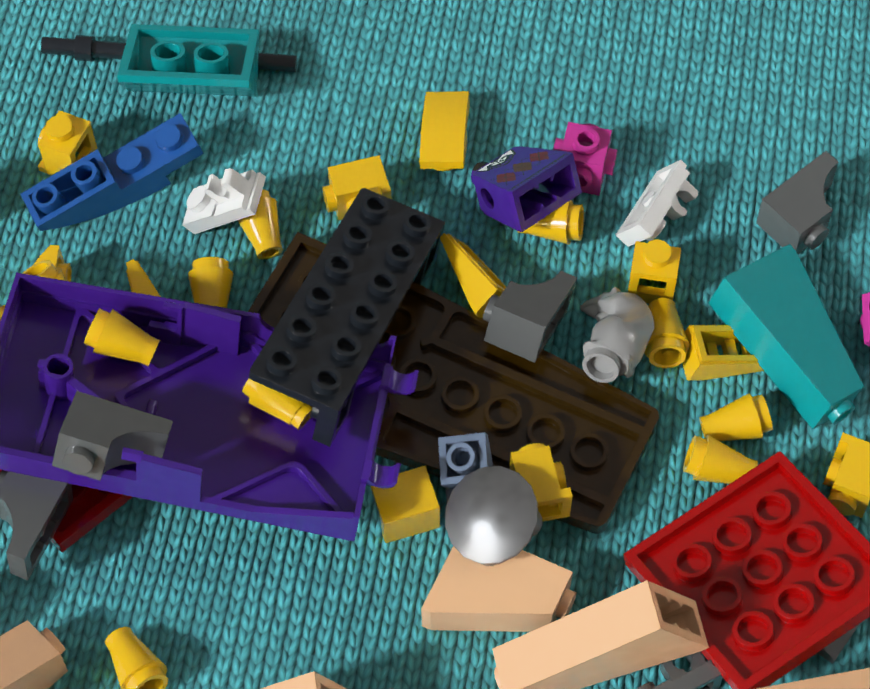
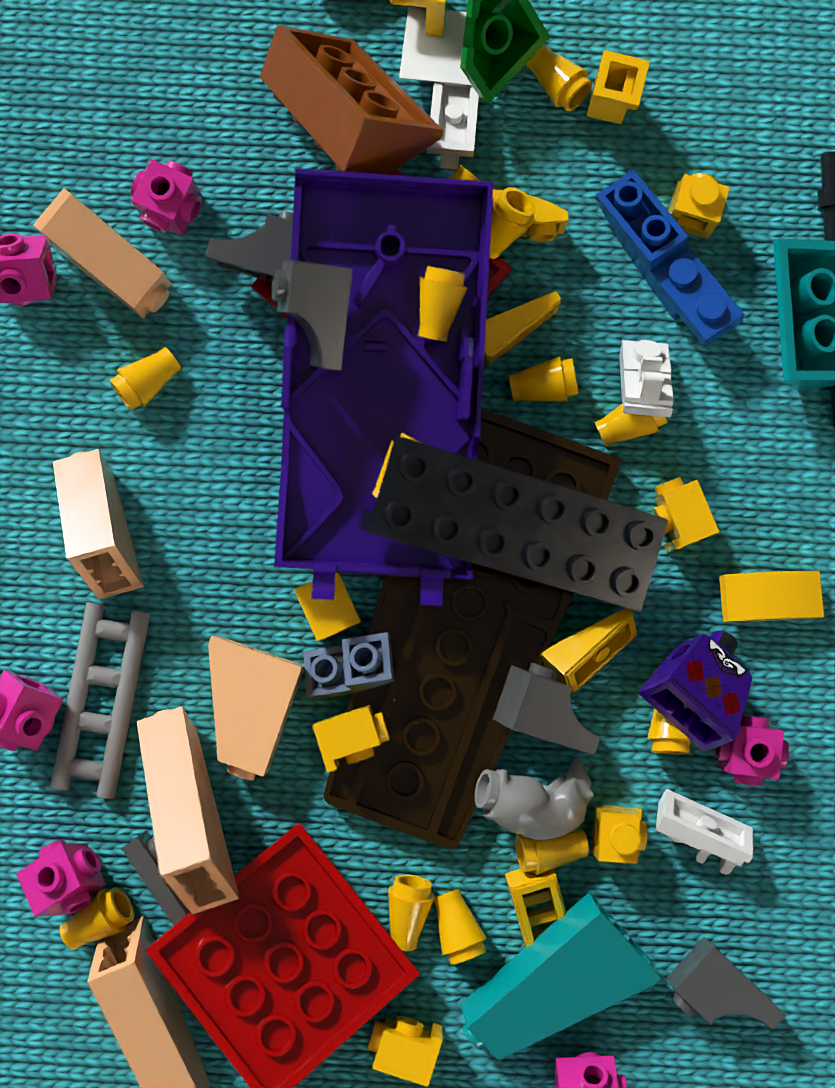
camera: 85 degrees right, 25 degrees up
(492, 515) = (299, 695): flat silver dish -> none

